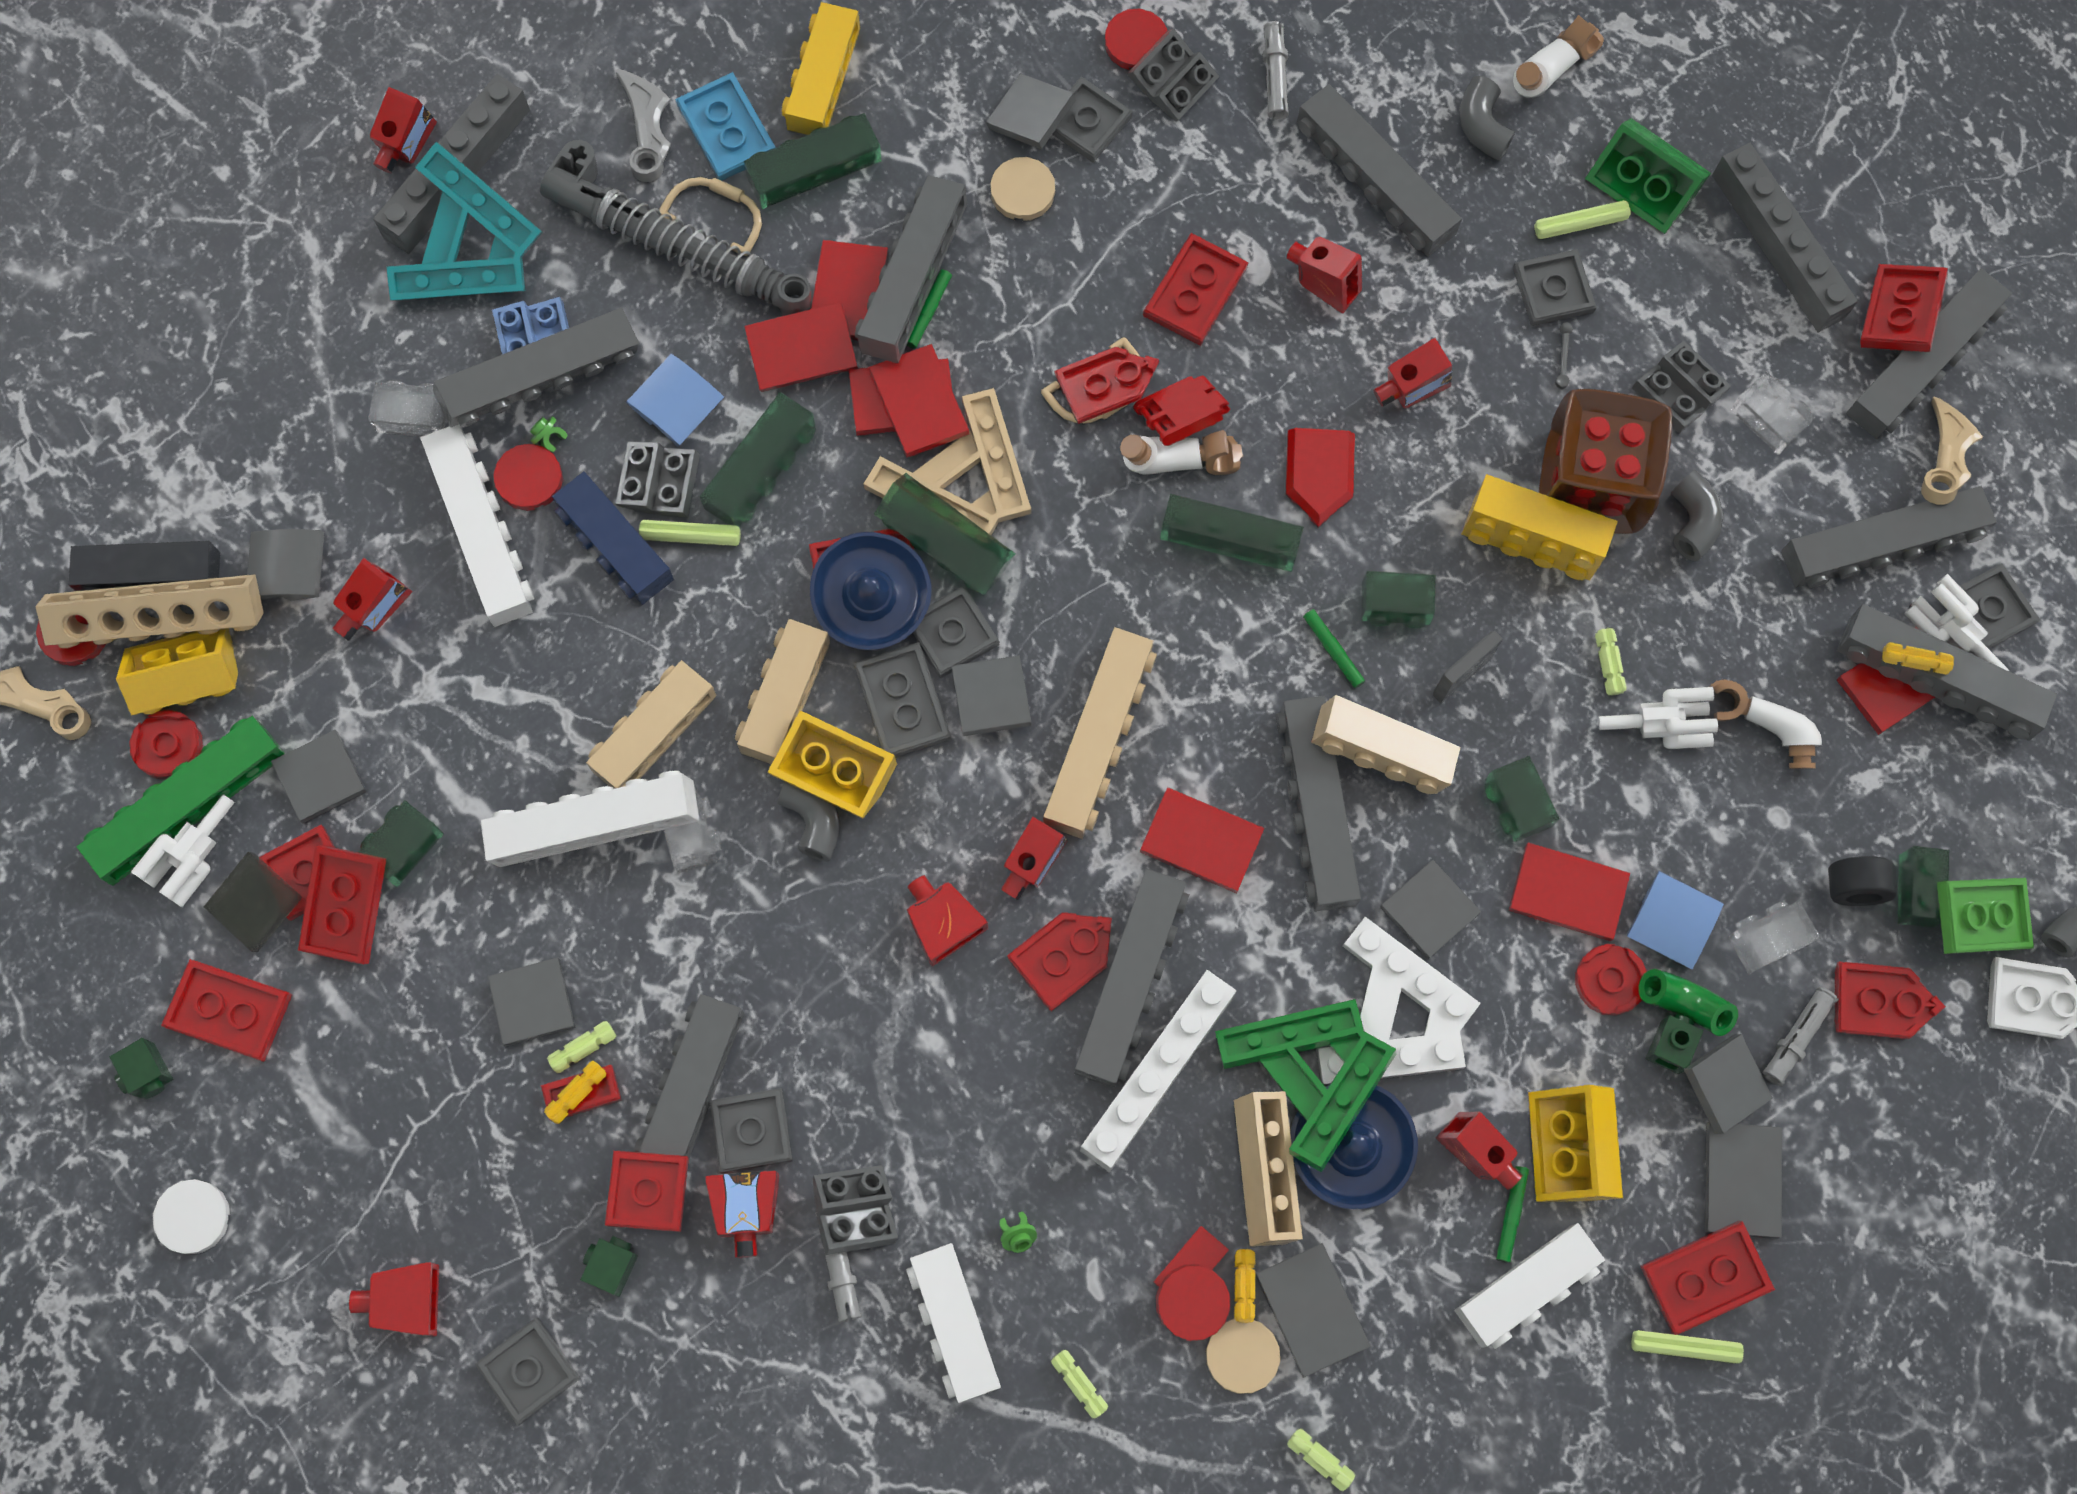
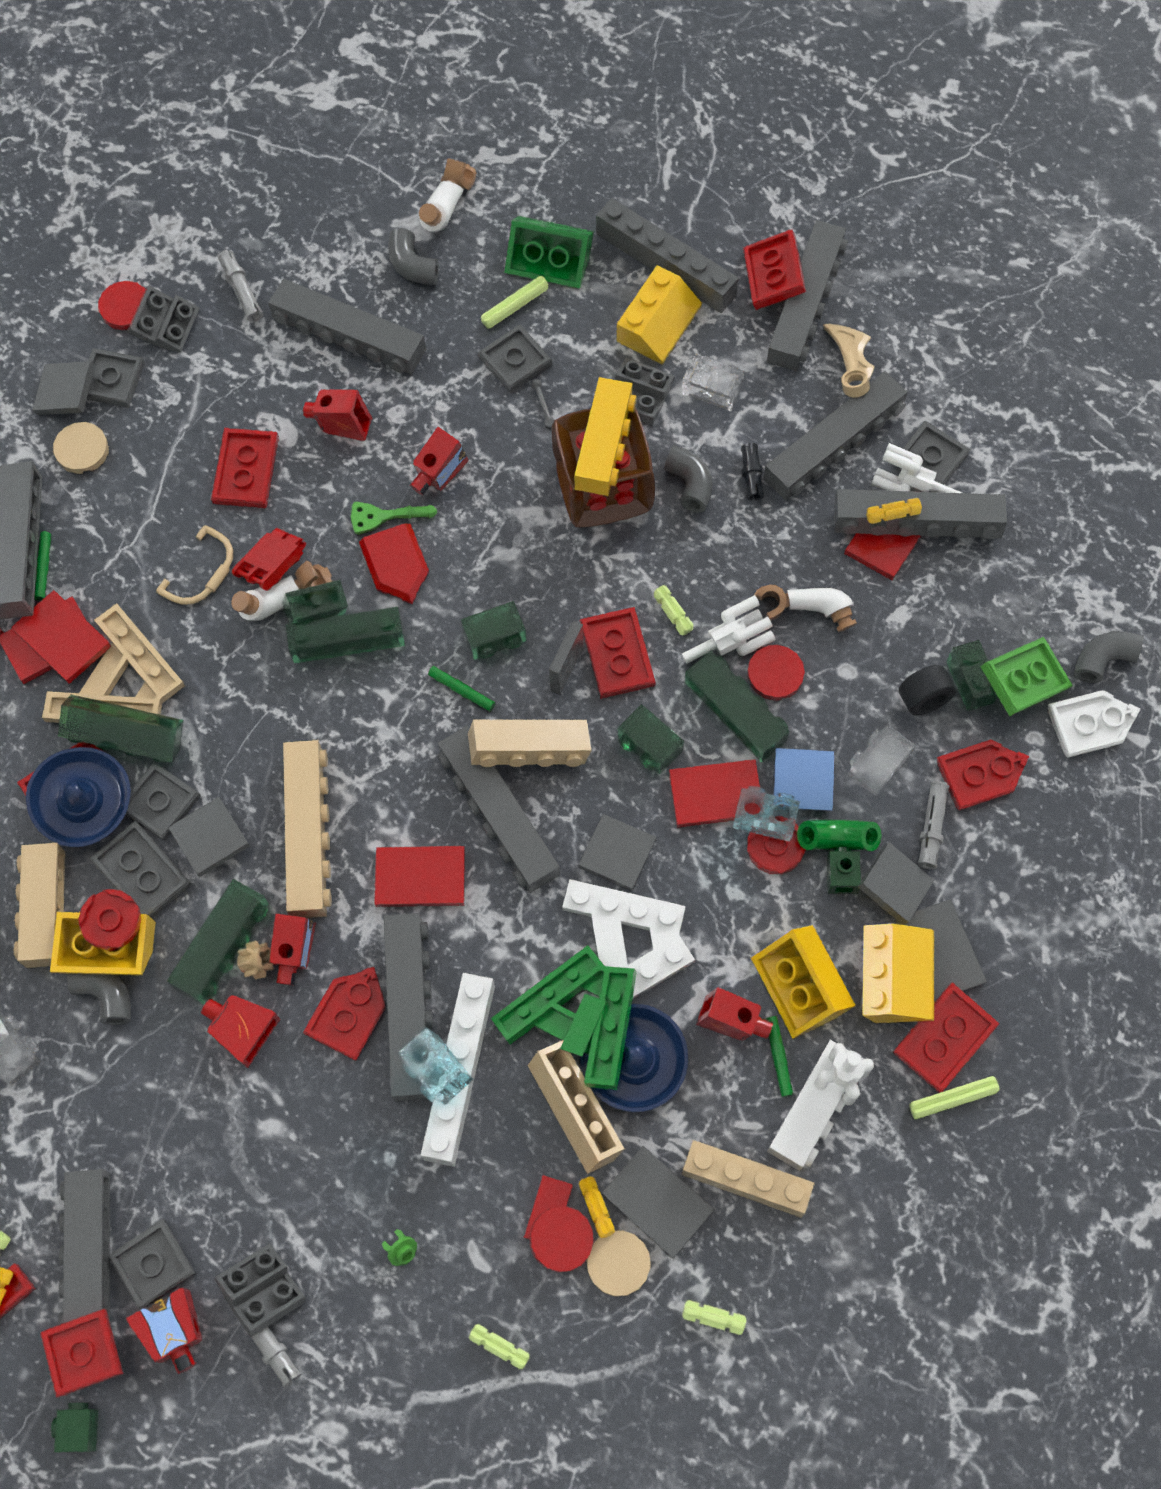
camera: 20 degrees left, 5 degrees down
(853, 743) = (109, 919): none -> red tile
(955, 1324) = (378, 1344): white brick -> none
(957, 816) = (218, 942): none -> clear green brick
(988, 854) = (255, 960): none -> tan gear
(1105, 382) = (202, 563): red tile -> none
(1142, 1057) = (439, 1062): none -> clear light blue brick
(1212, 483) = (315, 602): none -> clear green brick
(1314, 1085) = (583, 1025): none -> green sticker
(1327, 411) = (381, 516): none -> bright green piece
(1421, 1331) = (748, 1178): none -> tan brick
(1526, 683) = (617, 652): none -> red tile
(1539, 528) = (576, 534): yellow brick -> none
(1580, 1266) = (845, 1072): none -> white plant
(1612, 949) = (765, 822): none -> clear light blue brick
(1621, 435) = (603, 436): none -> yellow brick
(1636, 804) = (737, 706): none -> clear green brick
(1686, 1184) = (898, 973): none -> yellow slope
(1696, 783) = (775, 672): none -> red tile
(1743, 306) = (658, 315): none -> yellow slope
(1772, 538) = (752, 471): none -> black pin

